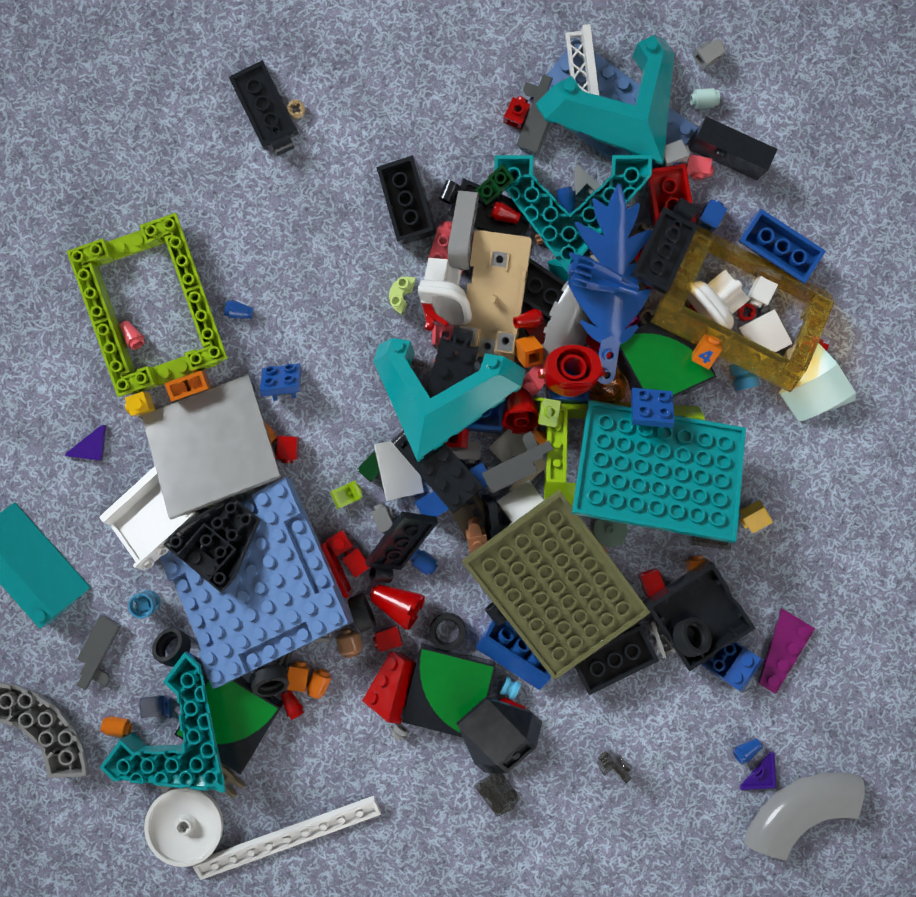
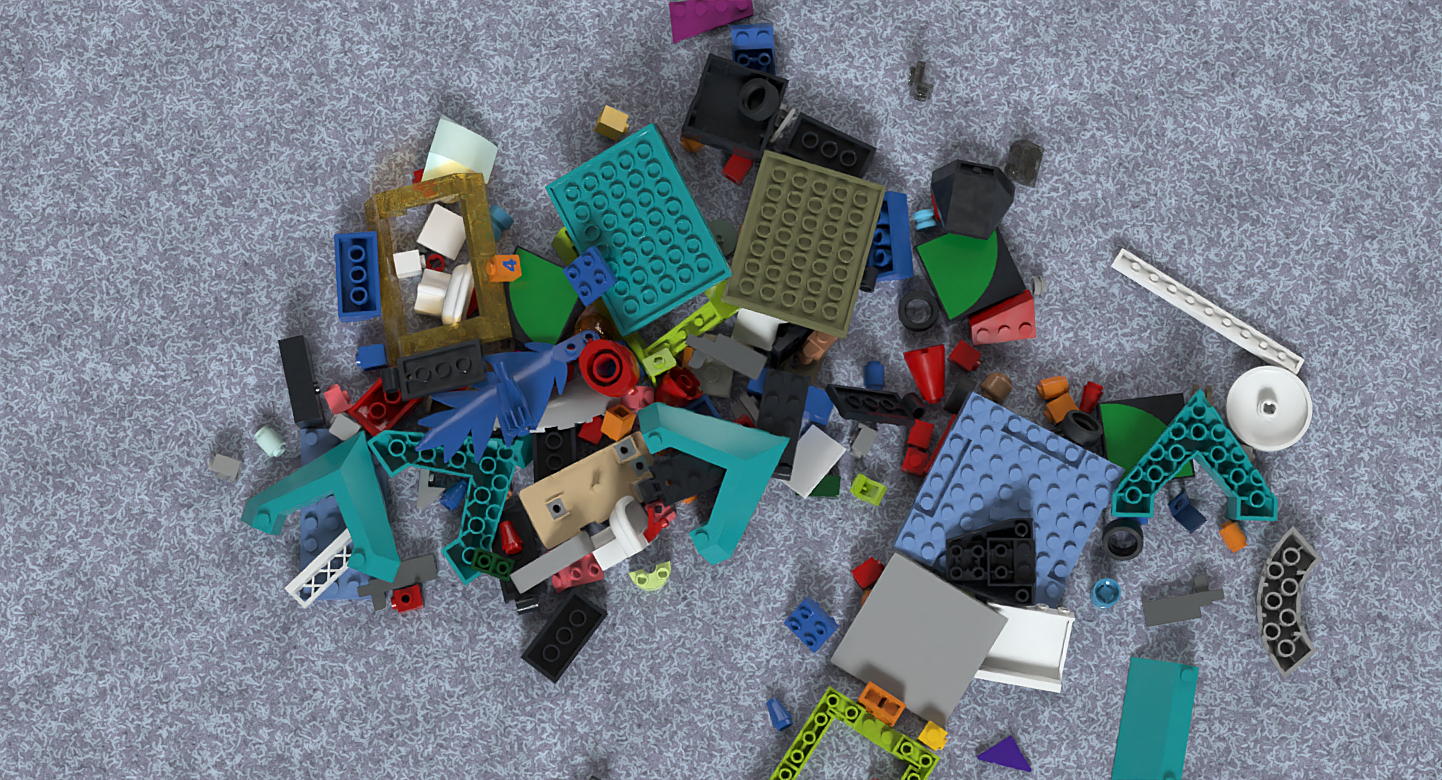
camera: 130 degrees left, 10 degrees down
(529, 319) = (589, 442): red cone -> none

